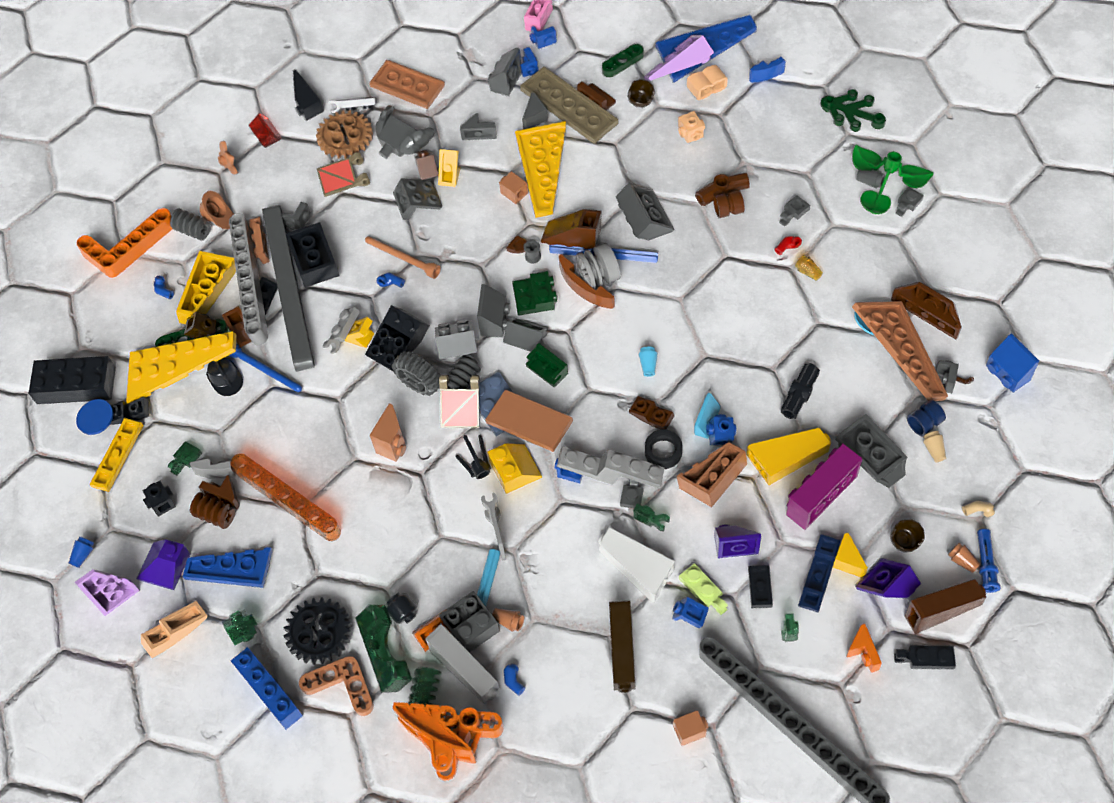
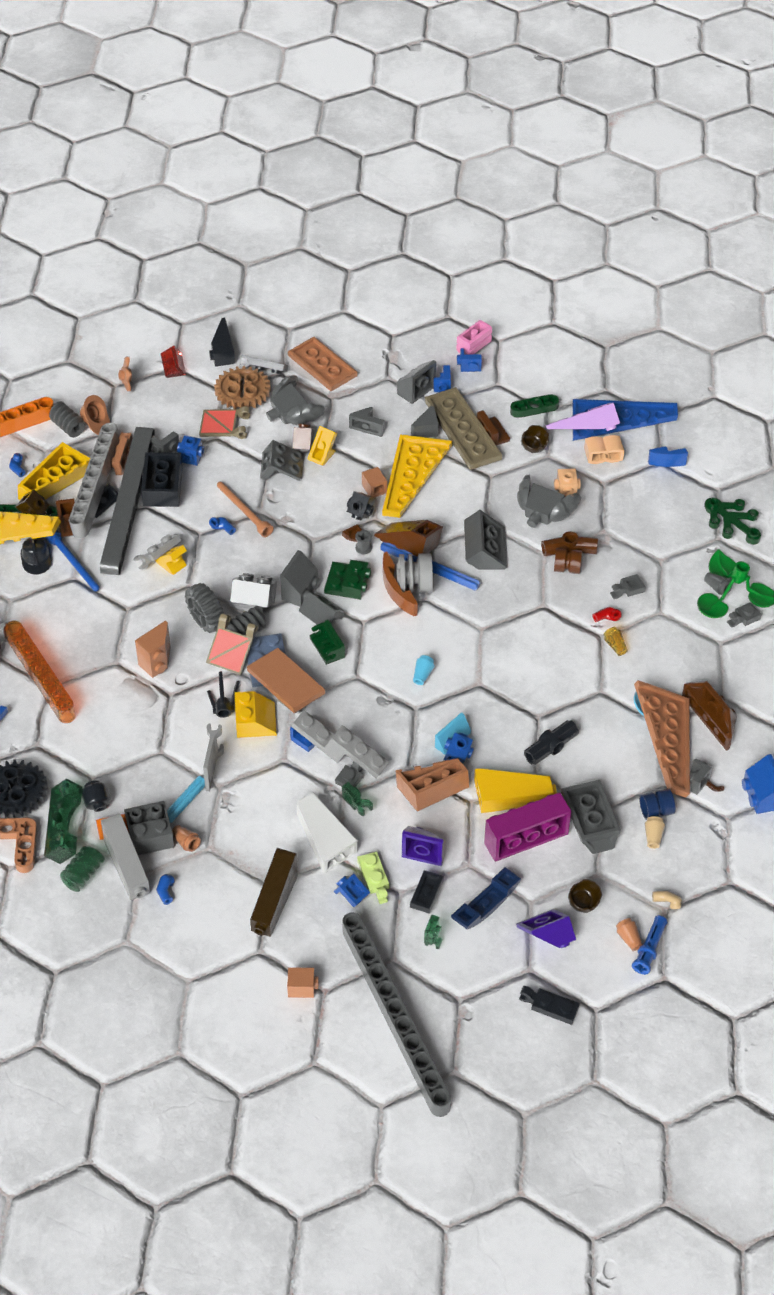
camera: 15 degrees right, 10 degrees down
(325, 214) = (191, 450): none -> blue brick
(395, 335) = (205, 567): black slope -> none
(446, 745) = (75, 905): orange piece -> none
(517, 211) = (360, 505): none -> black brick
(651, 414) = (402, 715): reddish brown slope -> none
(663, 435) = (398, 735): black tyre -> none
(679, 155) = (544, 504): none -> dark grey torso
(849, 558) = (519, 895): yellow slope -> none
(863, 644) = (493, 972): orange slope -> none
(944, 605) = (588, 964): reddish brown slope -> none

